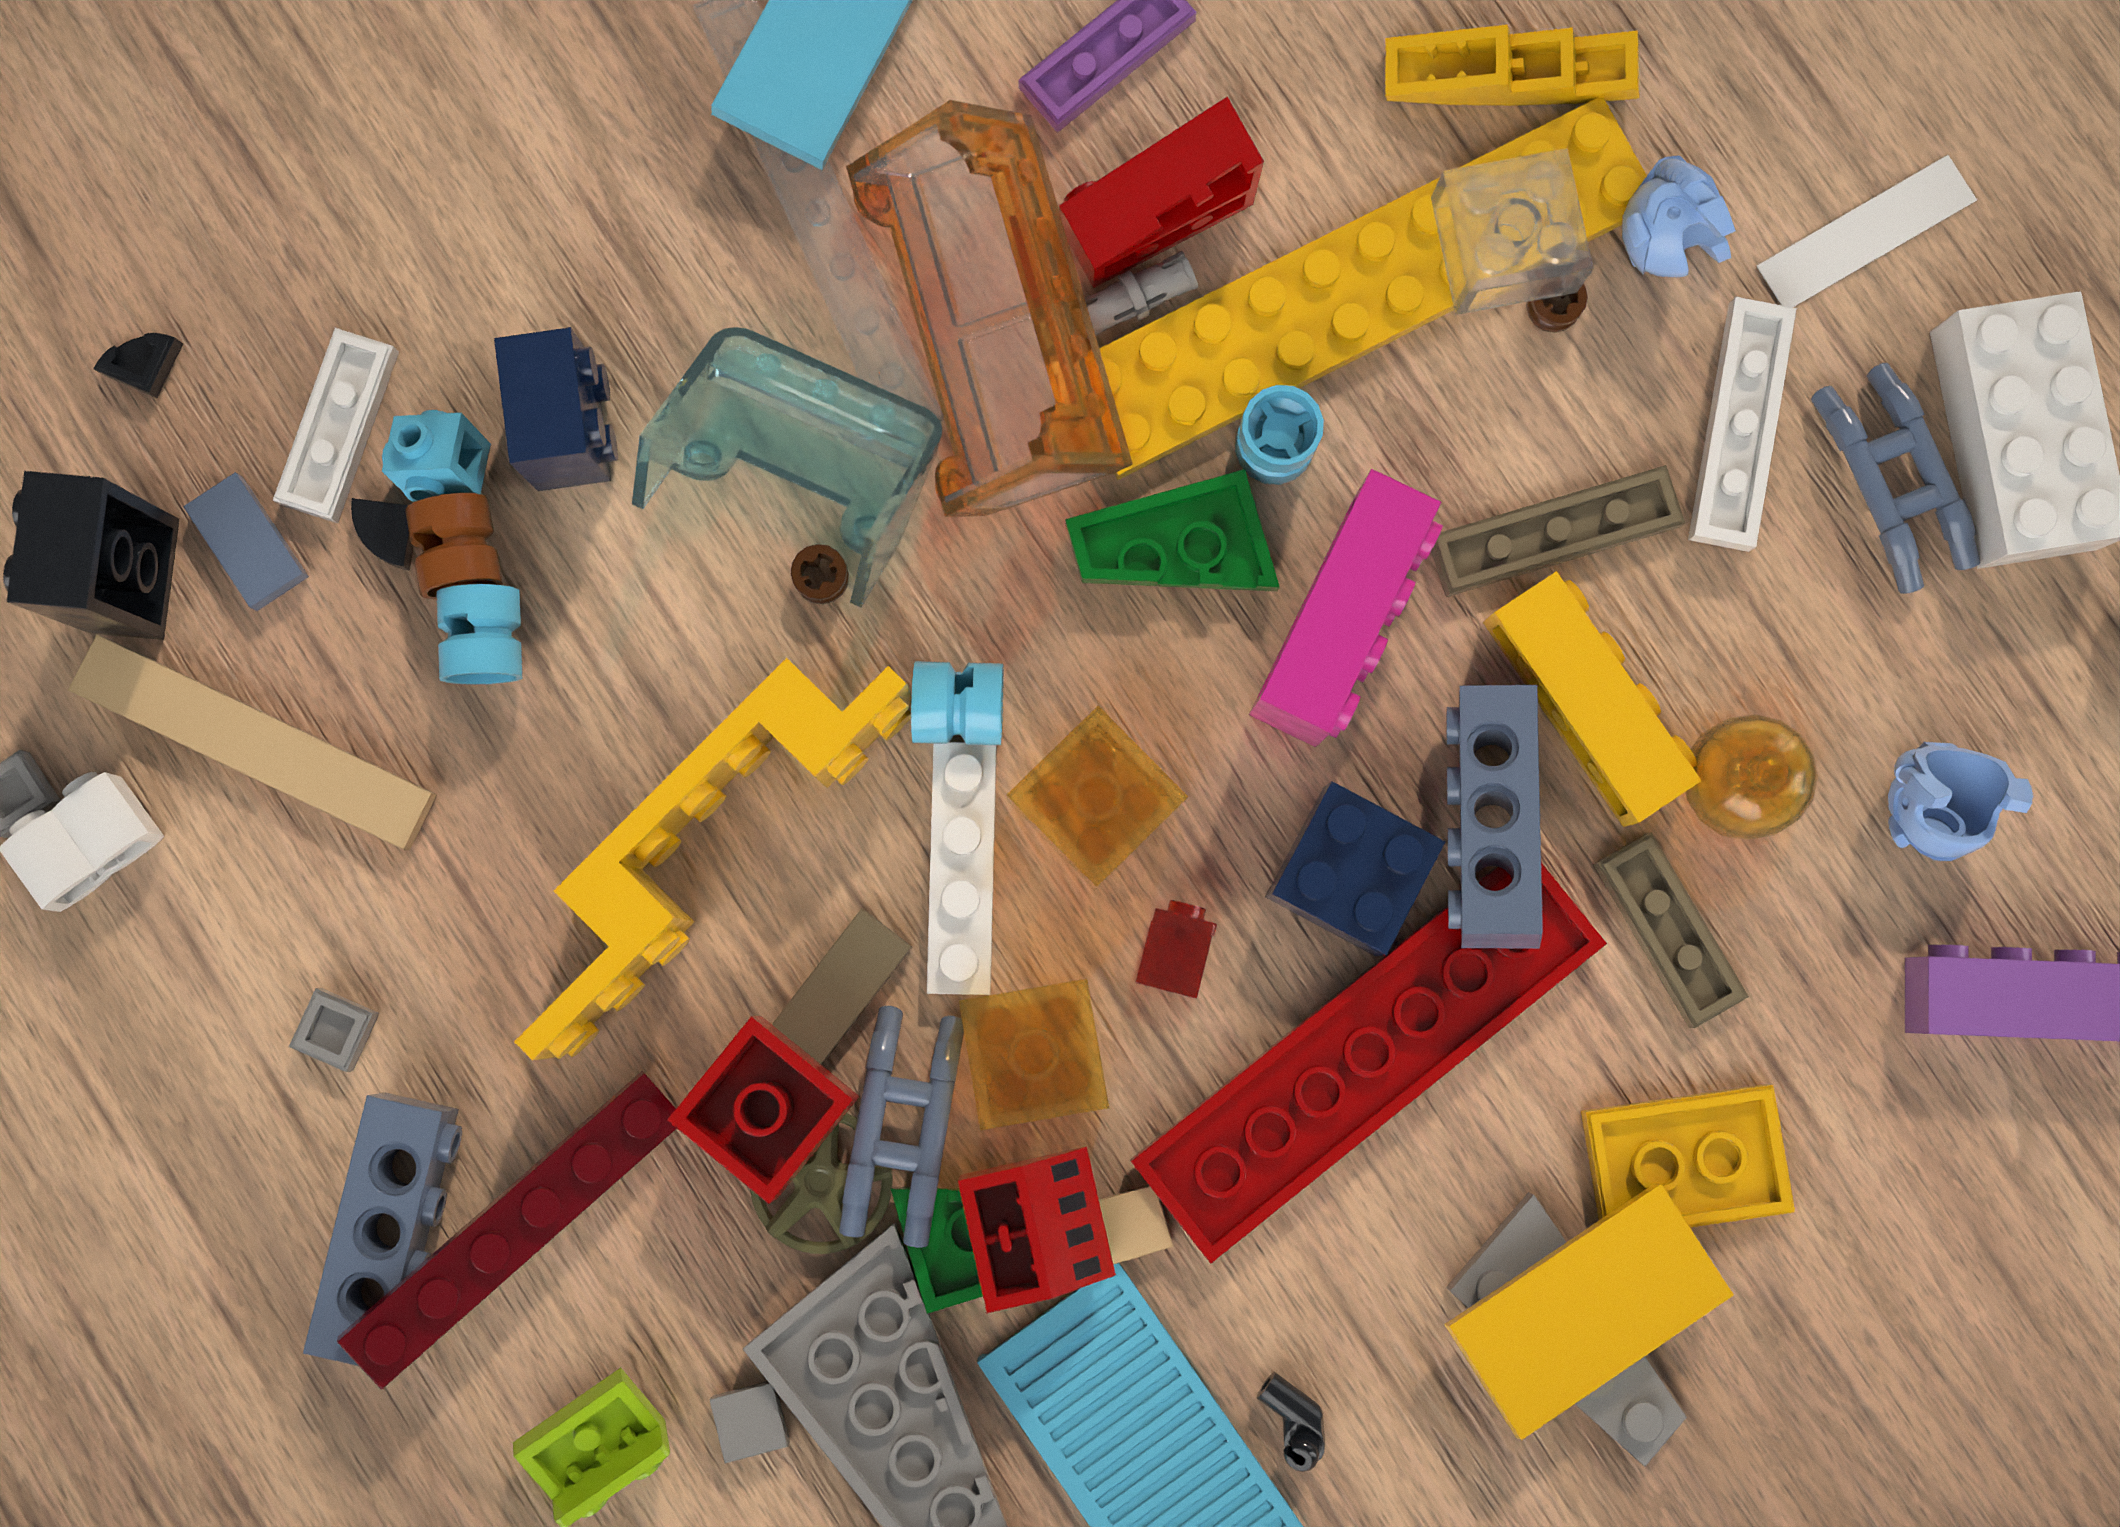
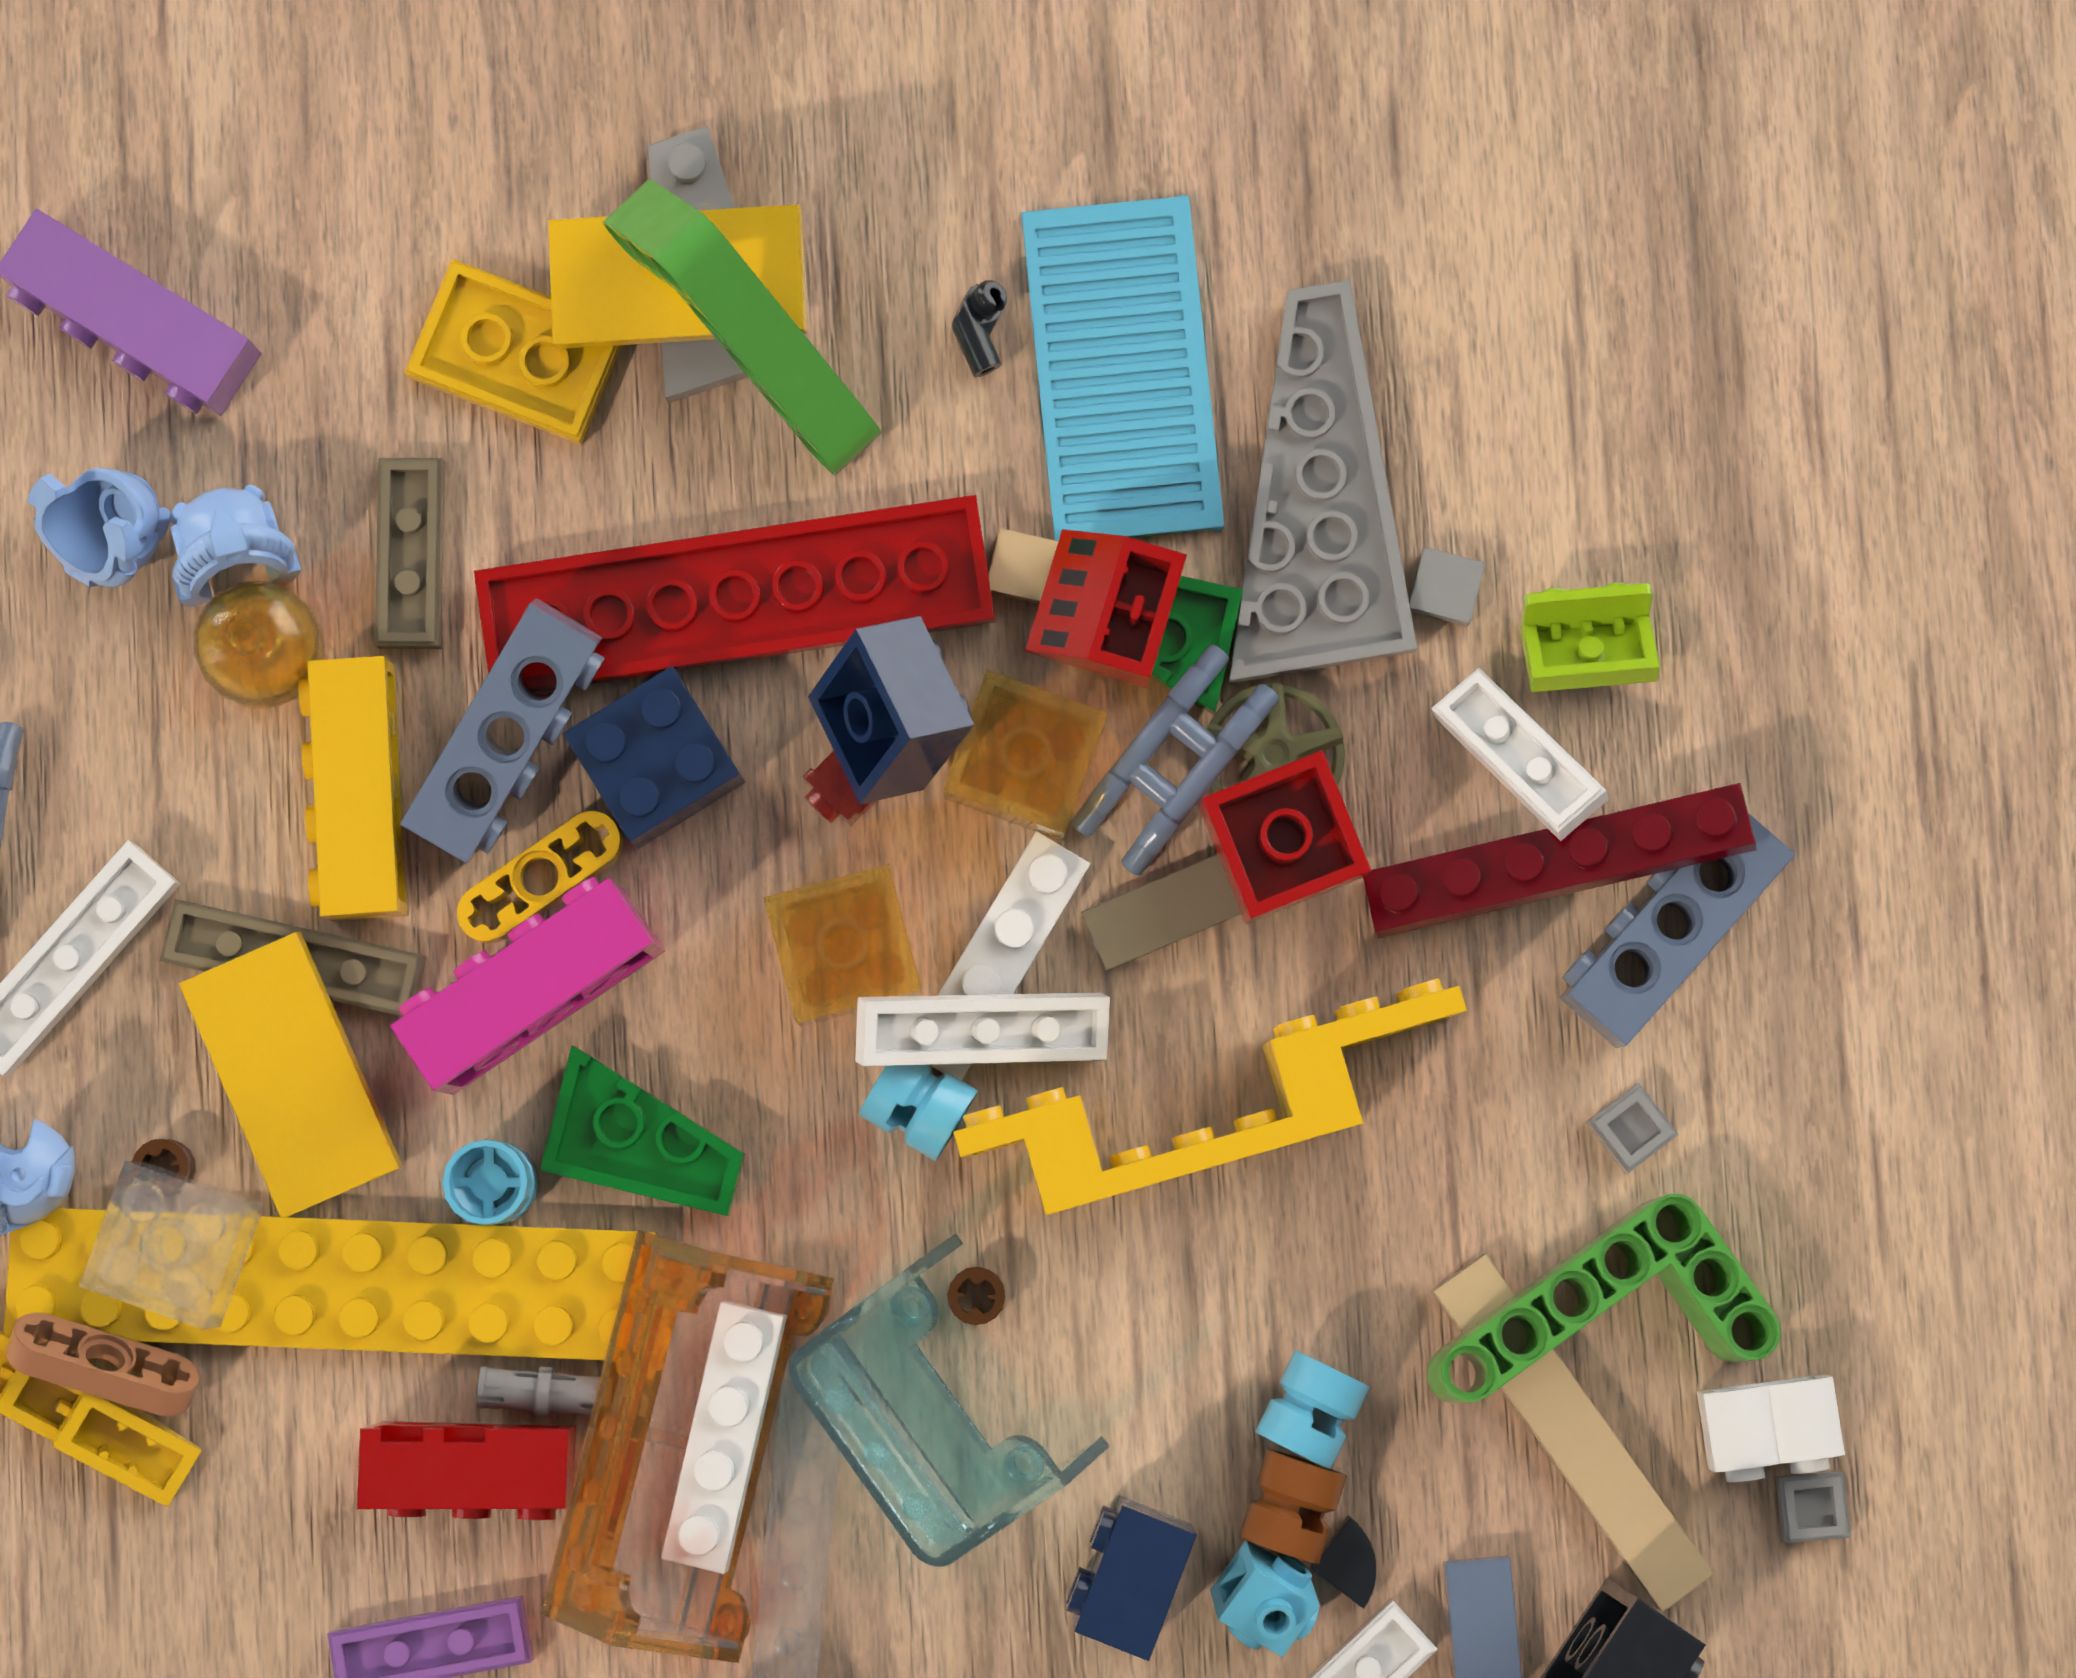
camera: 150 degrees left, 0 degrees up
(281, 867) = (1599, 1290): none -> bright green beam
(598, 1304) = (1520, 754): none -> white tile
(937, 793) = (981, 1029): none -> white plate
(962, 338) = (724, 1437): none -> white plate
(1173, 1025) = (890, 709): none -> dark blue brick
(1395, 667) = (571, 838): none -> yellow beam
(1499, 432) = (290, 1074): none -> yellow tile
(1508, 1303) = (745, 319): none -> bright green beam
(1555, 117) = (62, 1336): none -> nougat beam
(1841, 853) = (223, 531): none -> light blue helmet

